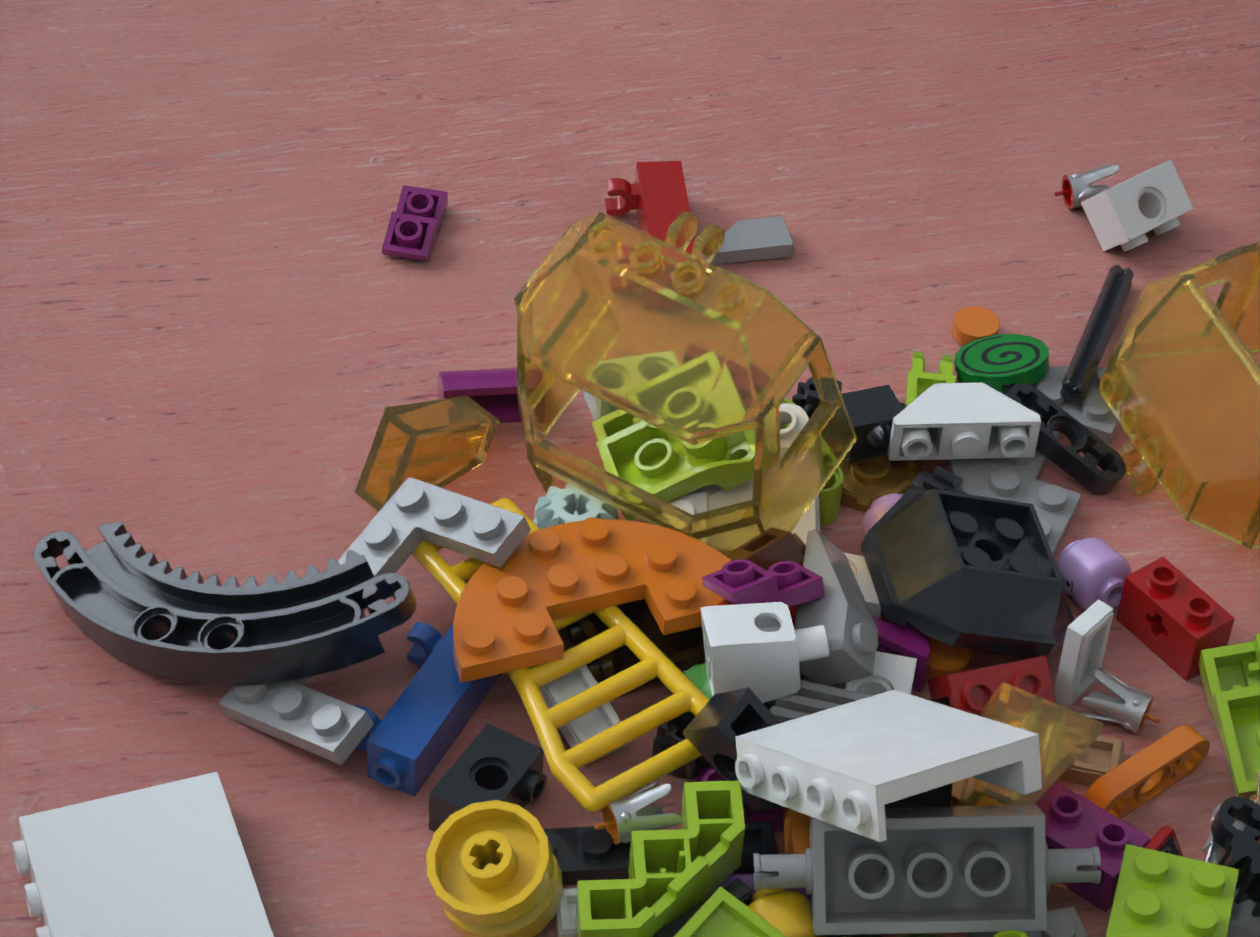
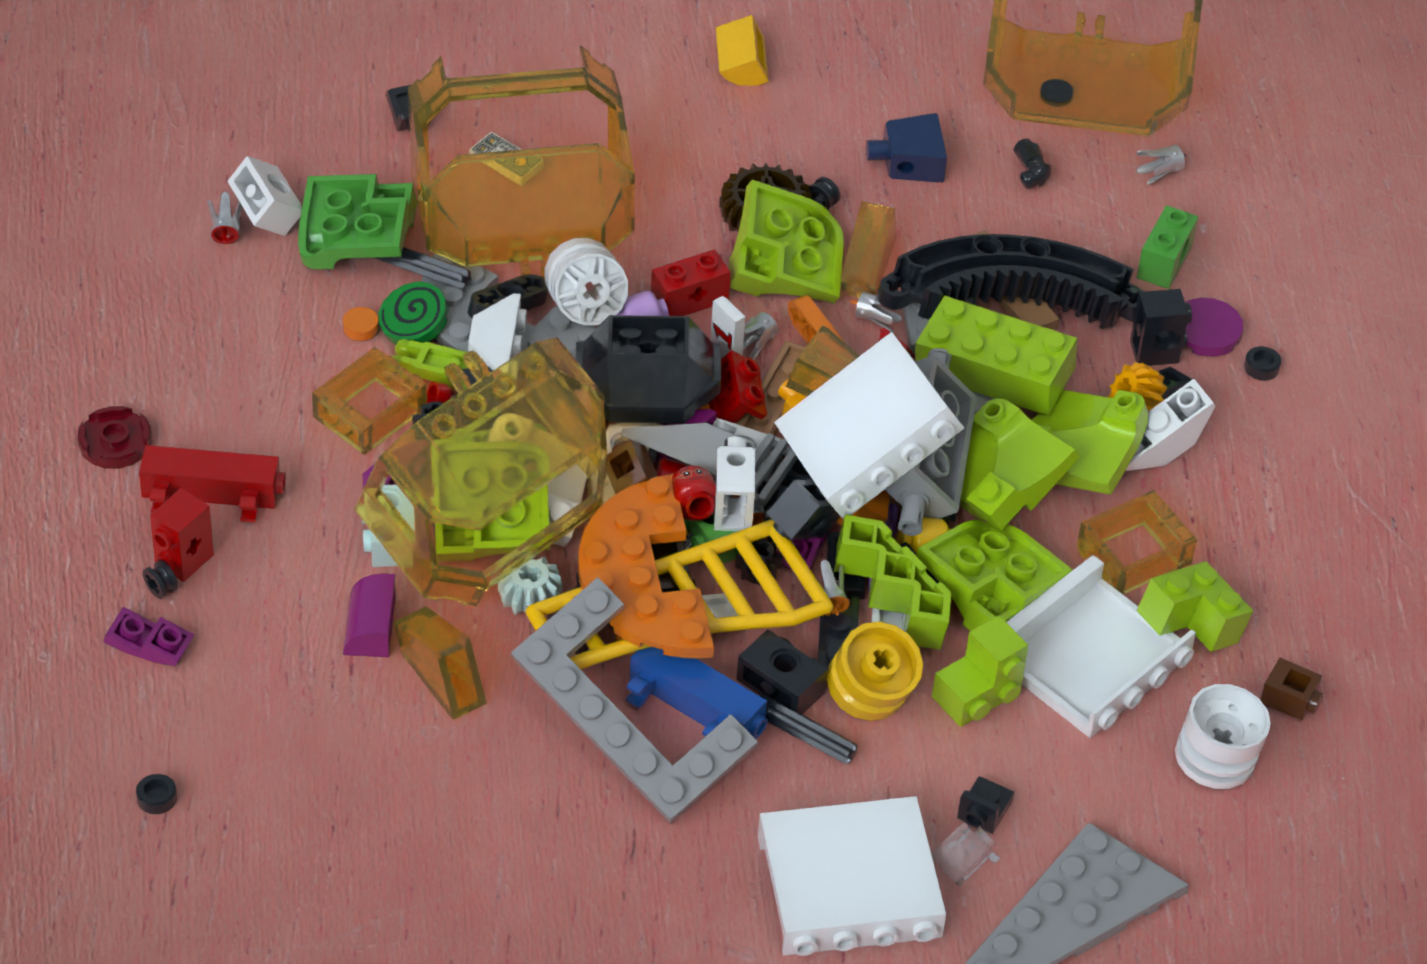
camera: 80 degrees left, 5 degrees up
(191, 264) = (156, 794): none -> black tile
(218, 630) = (584, 847): black gear -> none
(399, 837) = (809, 731): none -> black axle
(498, 215) = (160, 579): none -> black bush
(547, 201) = (182, 534): none -> red brick
(714, 159) = (114, 437): none -> dark red tile
(748, 583) = (678, 462): magenta slope -> none
(755, 241) = (225, 427): light grey tile -> none
(861, 322) = (363, 434): none -> clear yellow window
(1104, 489) = (575, 265): none -> white wheel
(1110, 267) = (353, 219): none -> bright green slope

